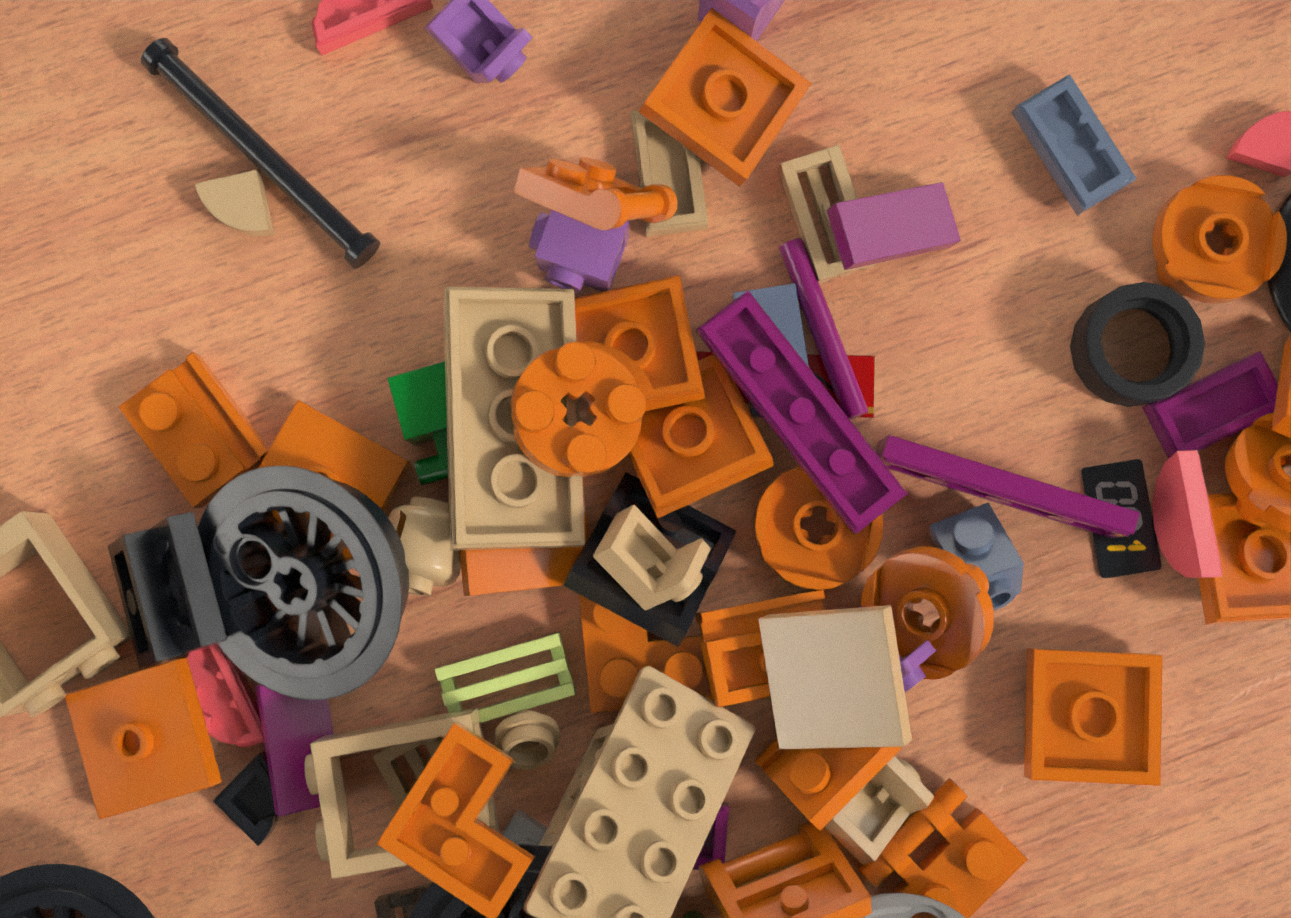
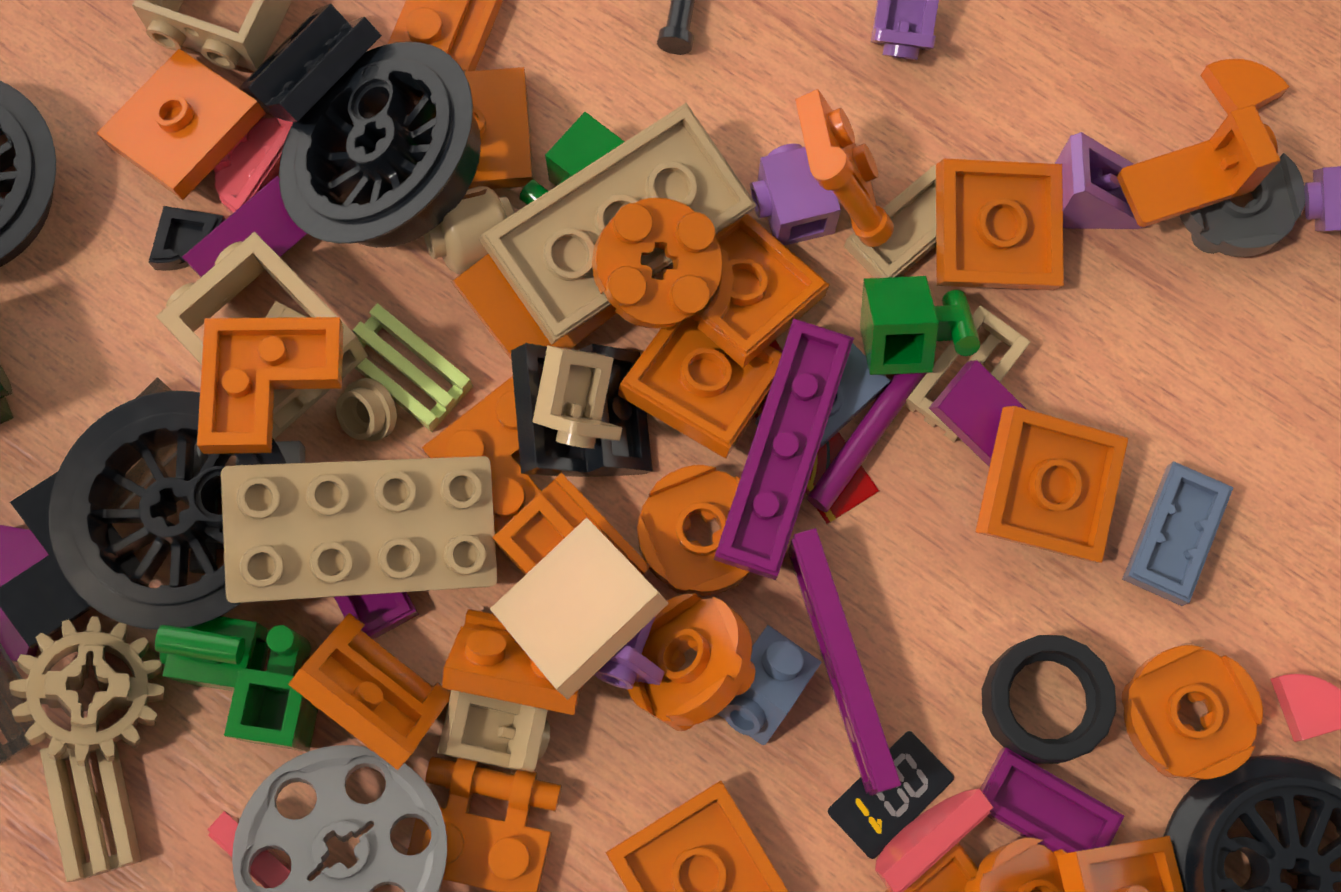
camera: 60 degrees right, 10 degrees down
(764, 239) = (903, 325): none -> green brick
(974, 217) = (1052, 484): none -> orange plate

